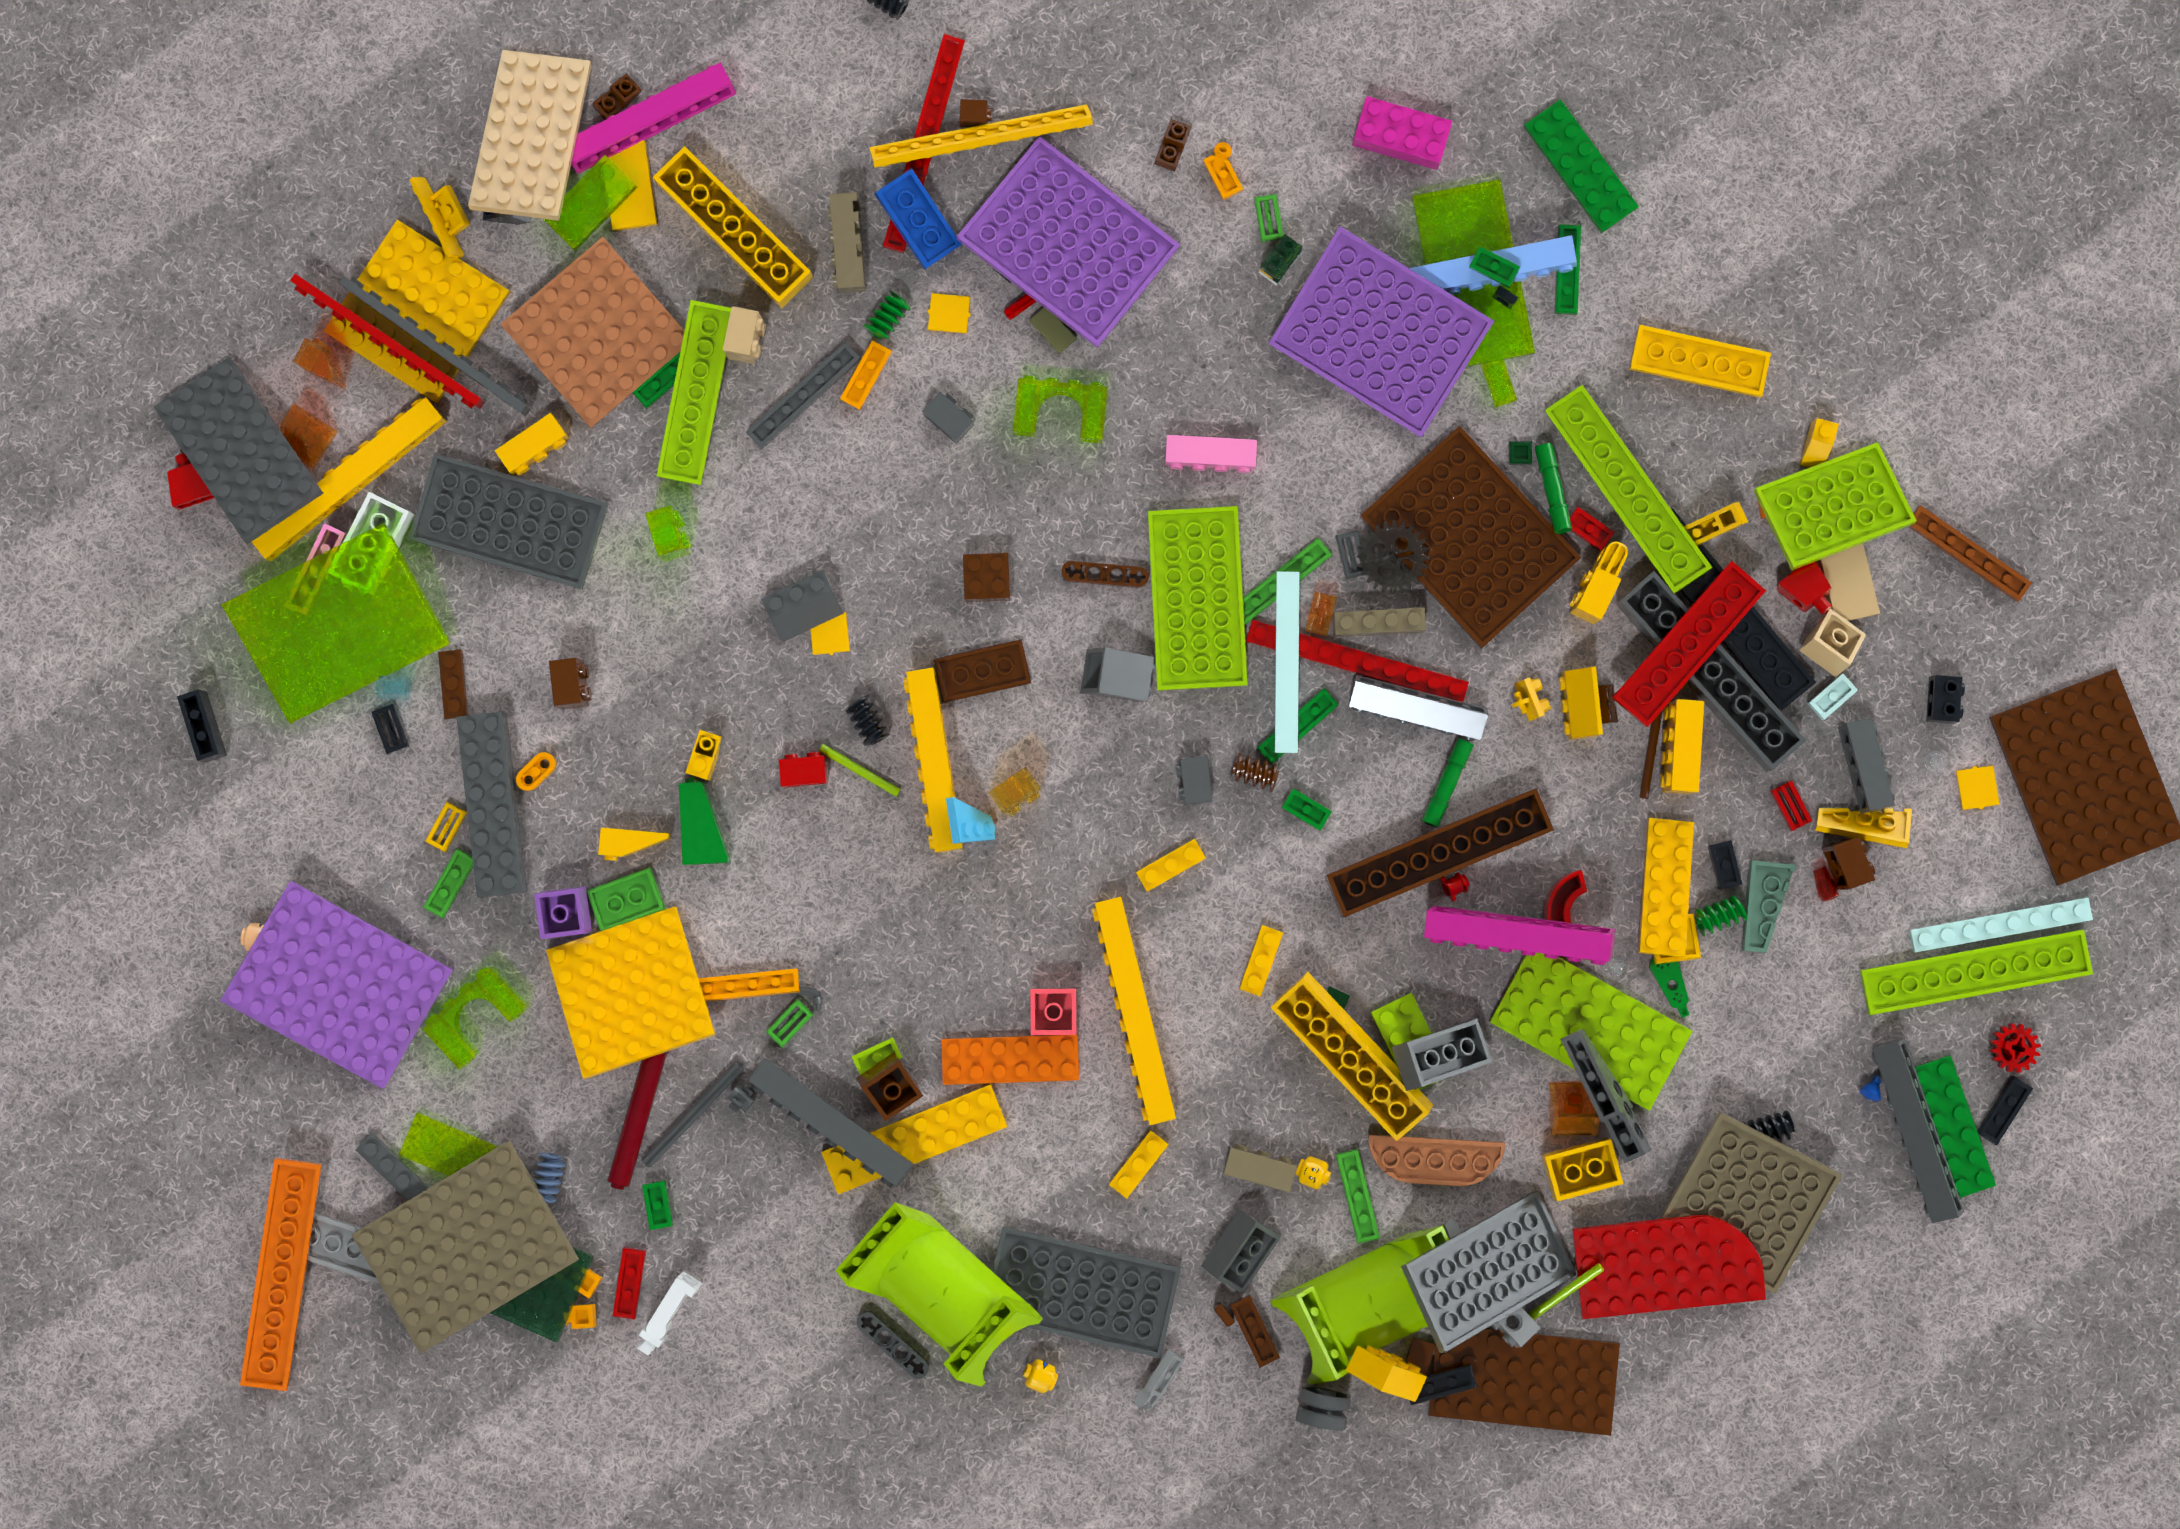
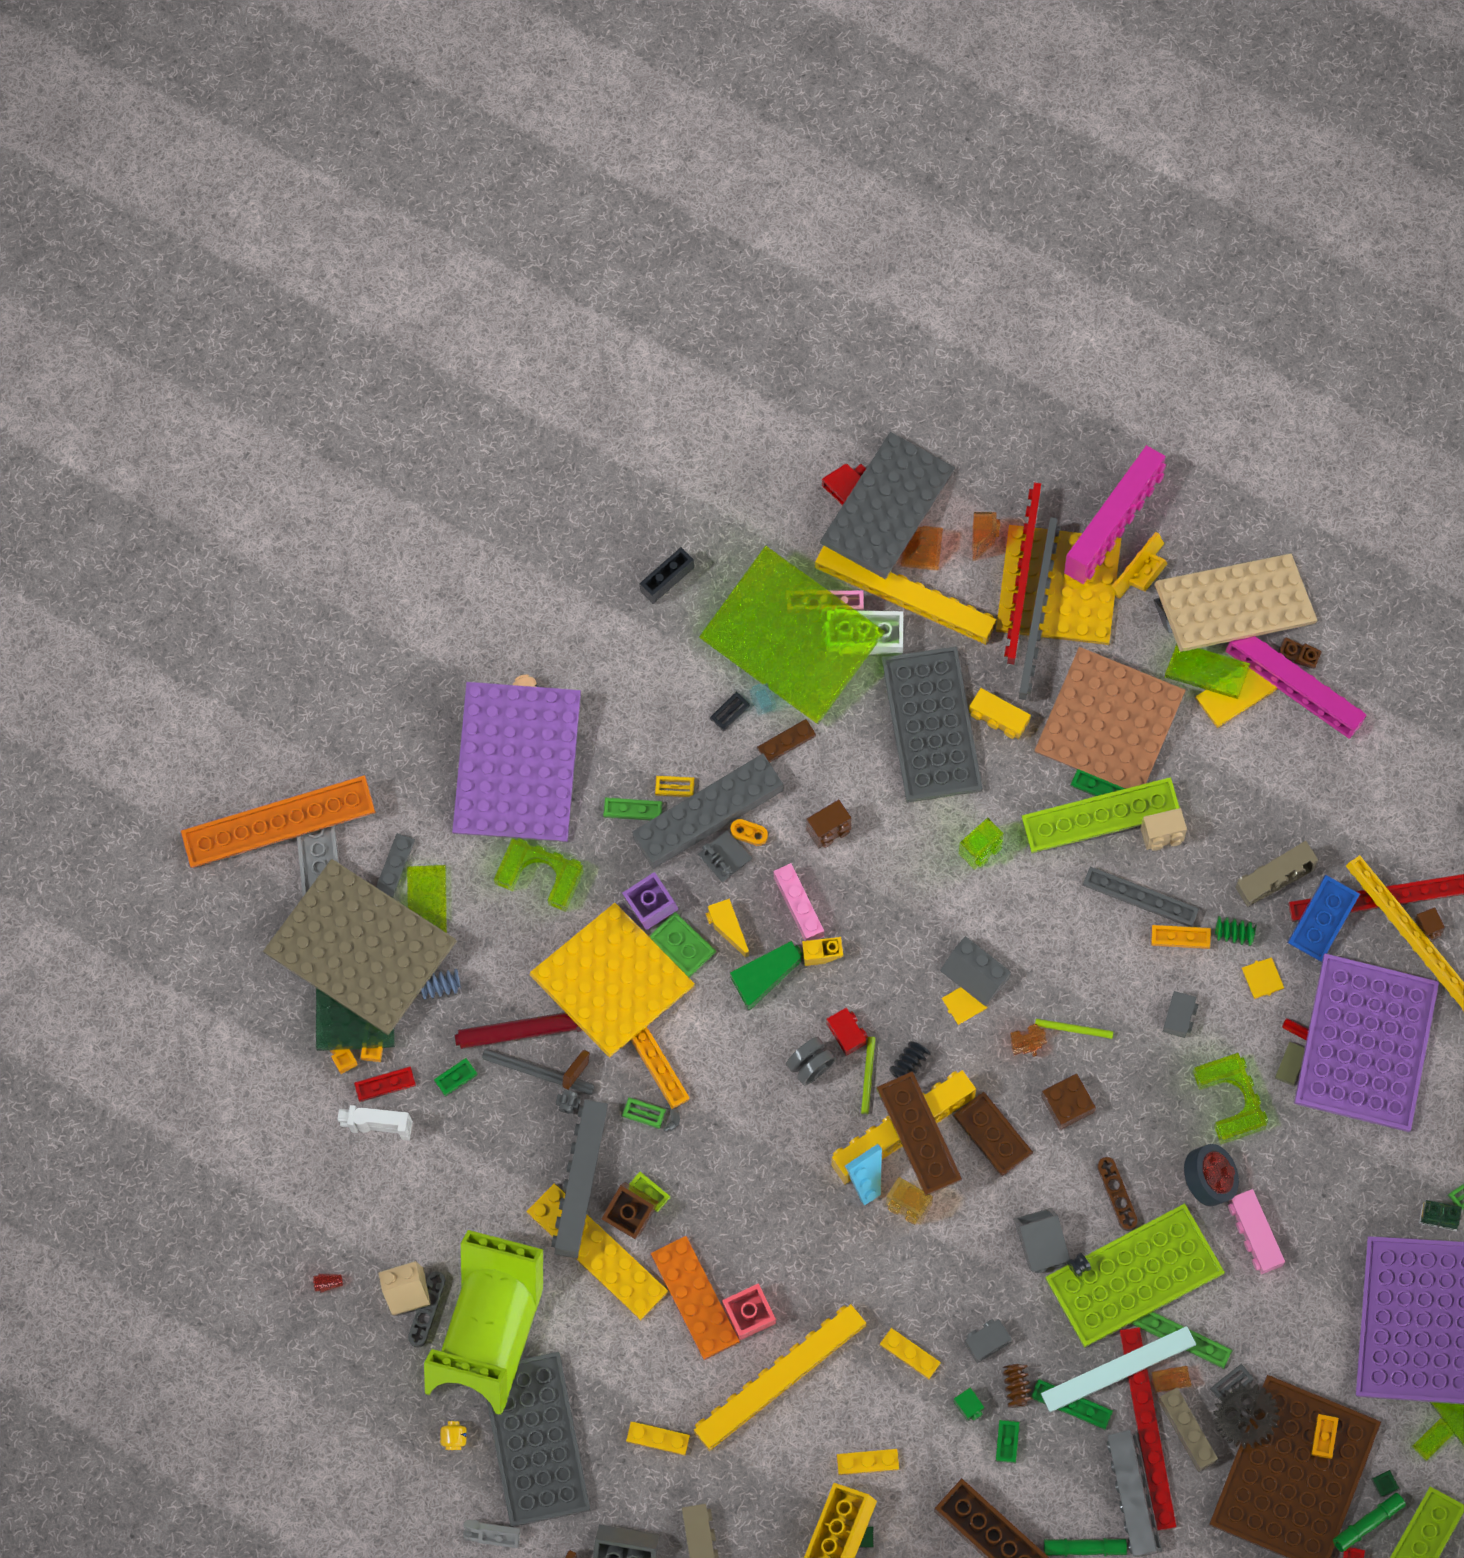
camera: 70 degrees right, 15 degrees down
(369, 212) = (1115, 515): none -> dark pink brick
(549, 809) = (724, 856): none -> dark grey hinge
(640, 756) = (798, 903): none -> bright pink brick
(710, 1075) = (575, 1069): none -> reddish brown tile
(733, 227) = (1243, 783): yellow brick -> none
(815, 825) = (810, 1061): none -> dark grey wheel
(815, 1438) = (326, 1282): none -> clear red cone
(861, 1359) = (405, 1288): none -> tan slope
(905, 587) = (1030, 1042): none -> clear orange hips
(909, 535) = (1074, 1028): none -> lime bar
(954, 750) = (919, 1133): none -> reddish brown plate
(1134, 469) = (1211, 1175): none -> black wheel
(1163, 650) = (1079, 1265): none -> black wheel
(1252, 830) = (969, 1405): none -> green brick
(1450, 489) = (1324, 1436): none -> light orange plate

